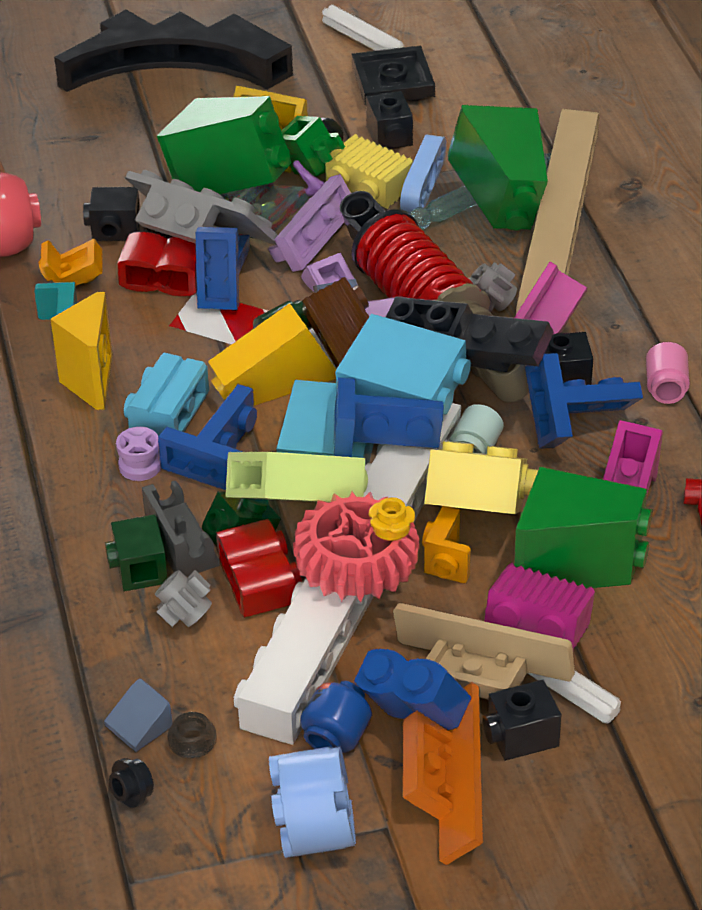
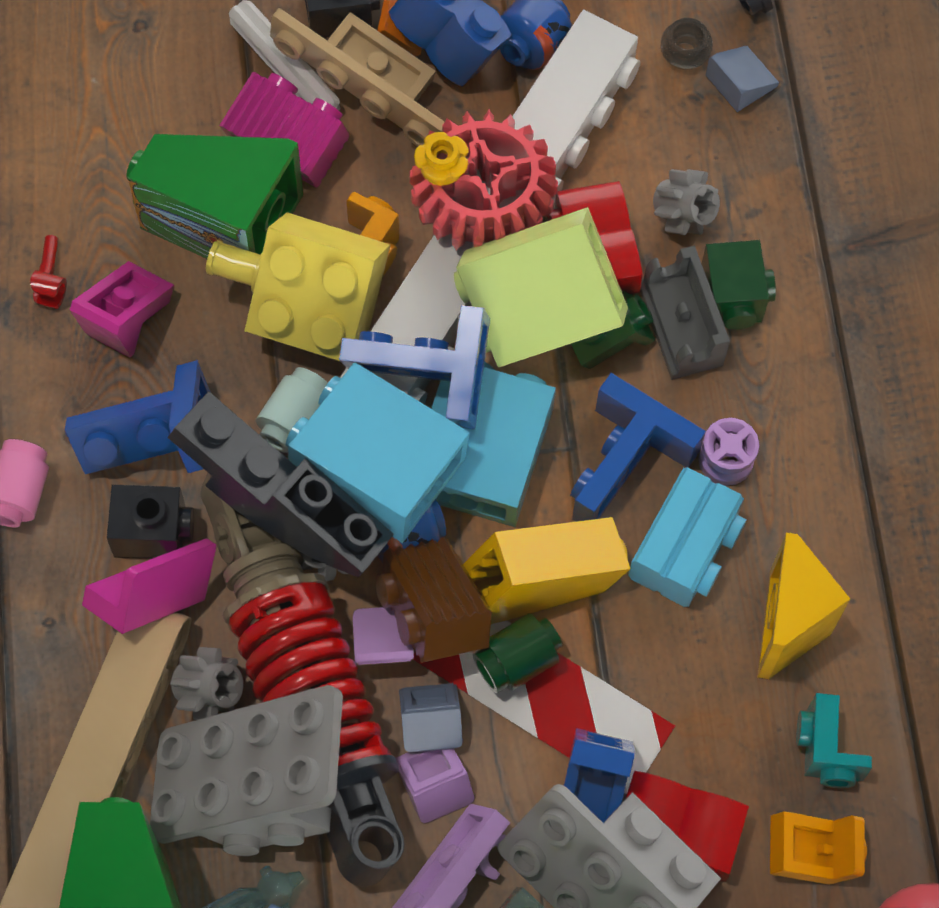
camera: 175 degrees left, 25 degrees up
(446, 221) = (251, 774): none -> light grey bracket

